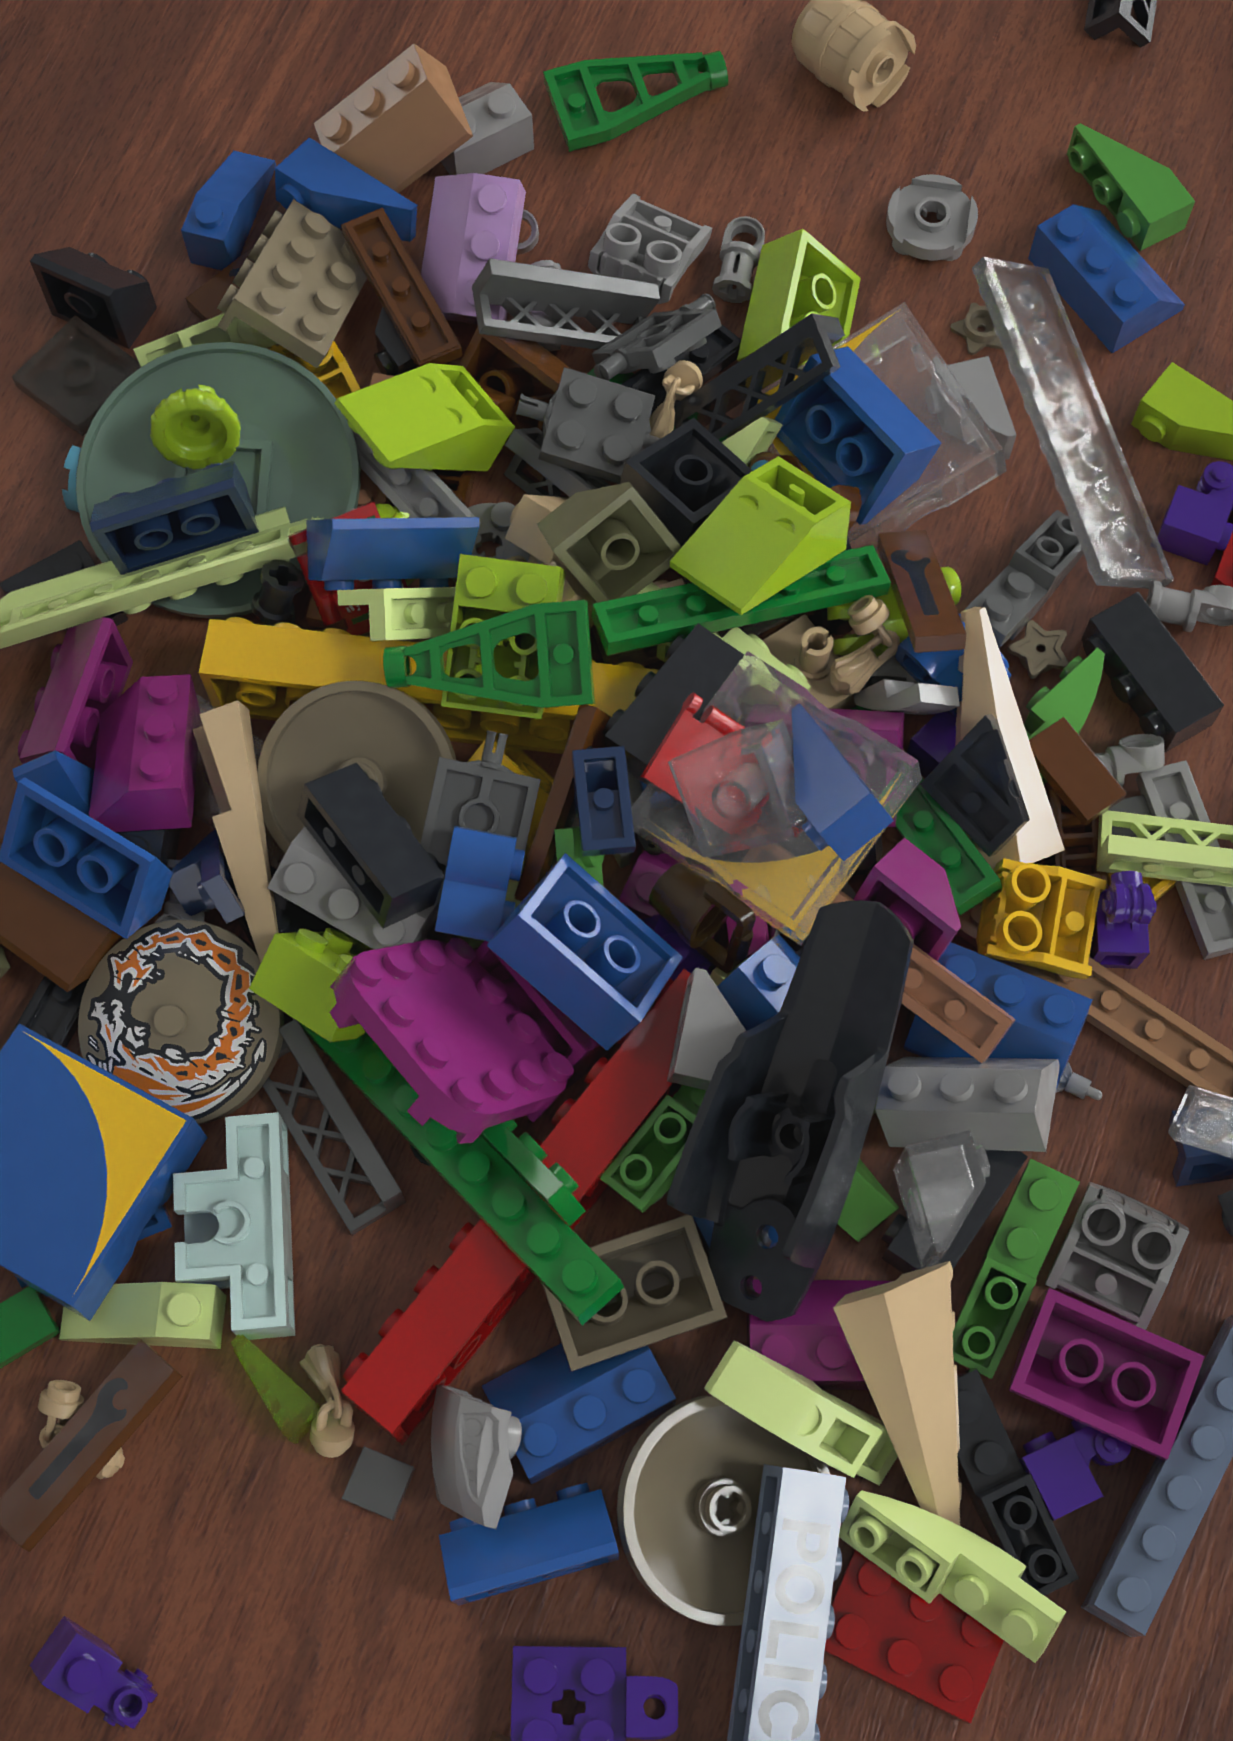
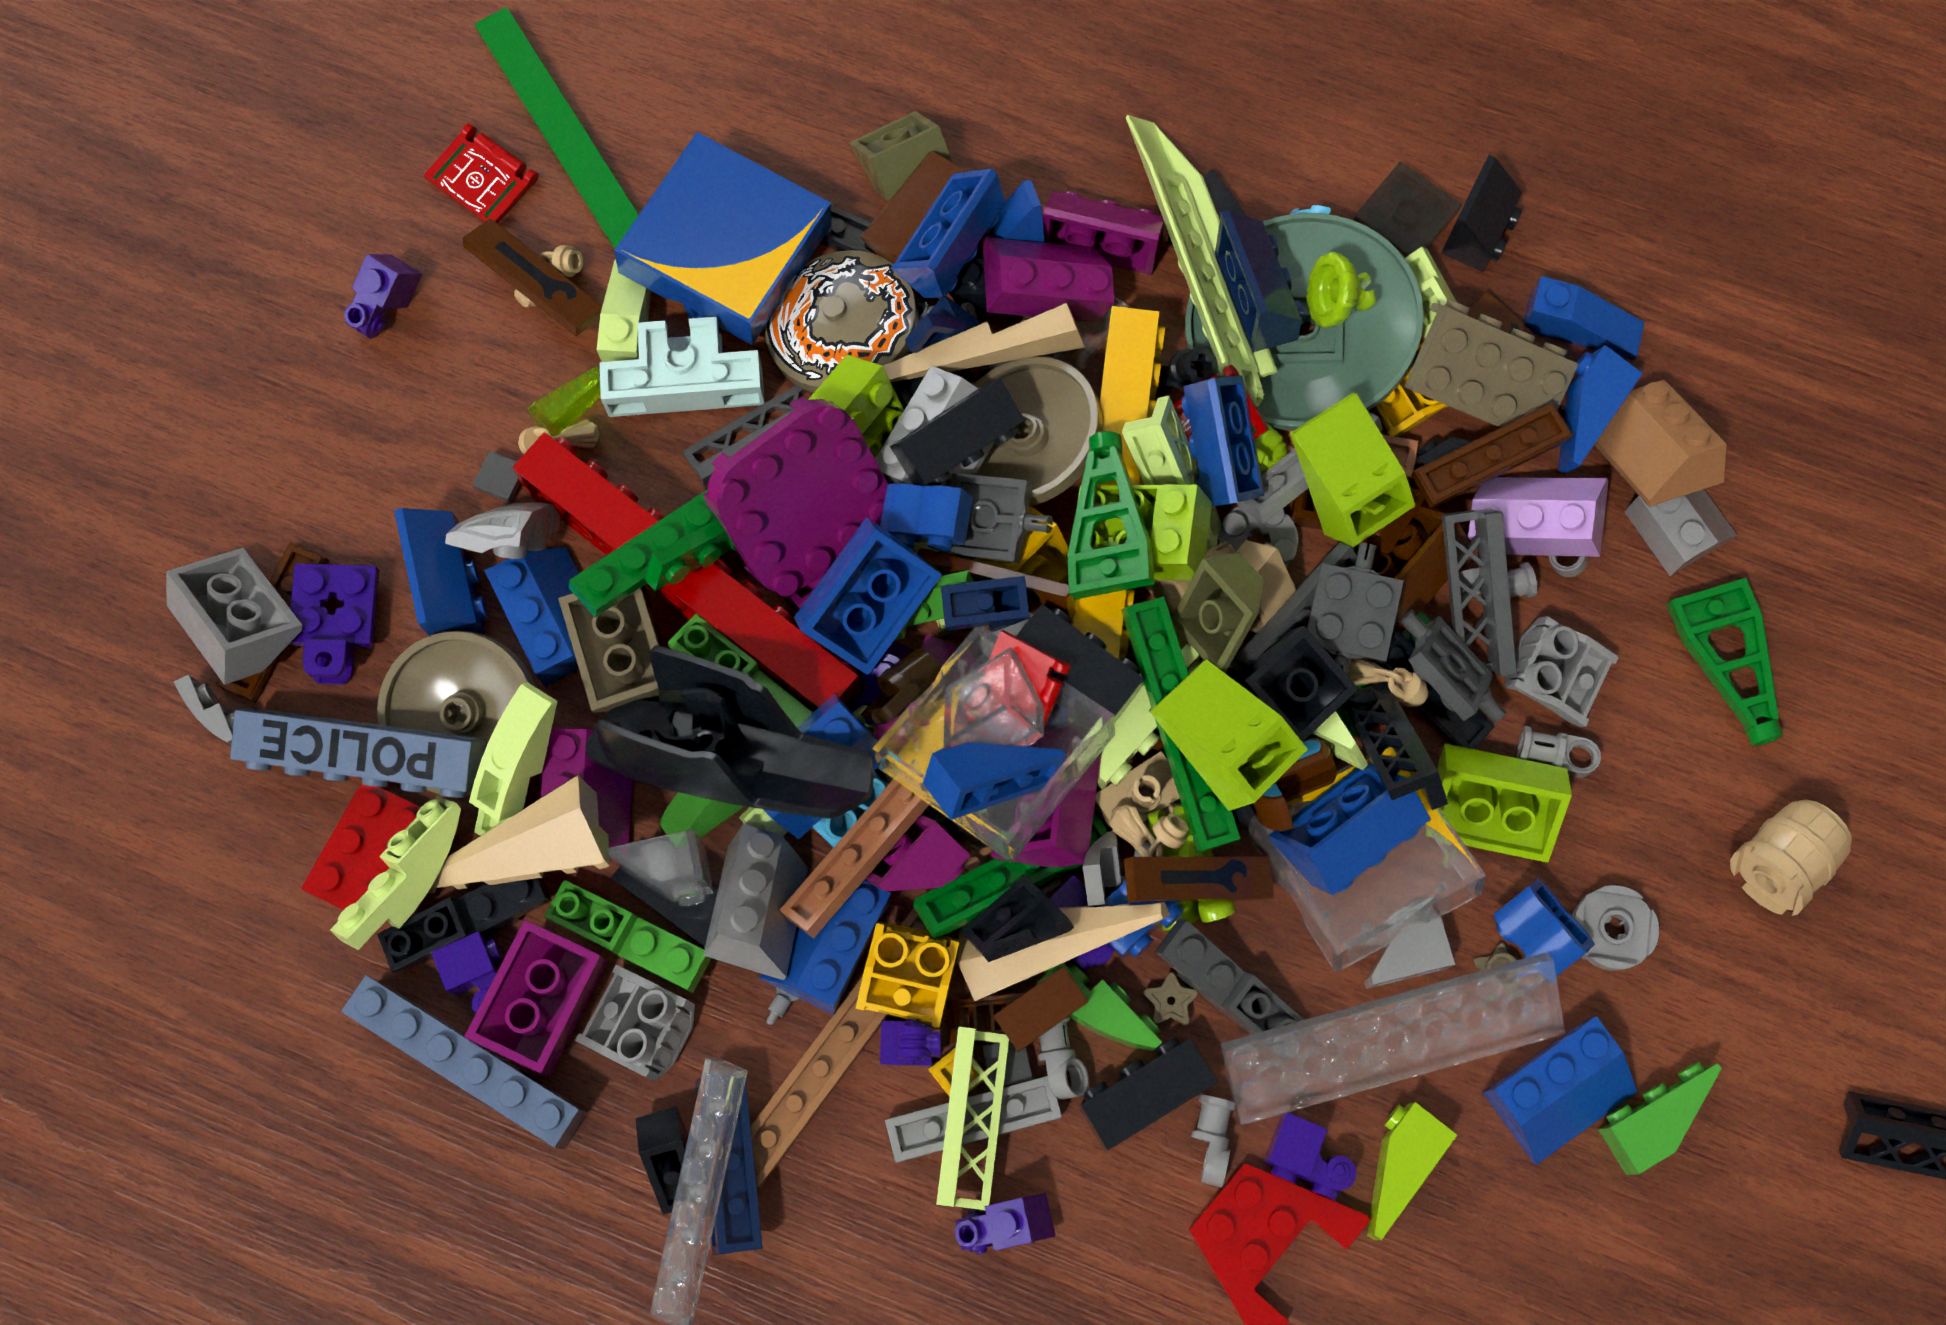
camera: 90 degrees right, 5 degrees up
(703, 1034) = (796, 684): light grey slope -> none
(940, 277) = (1542, 925): none -> blue brick

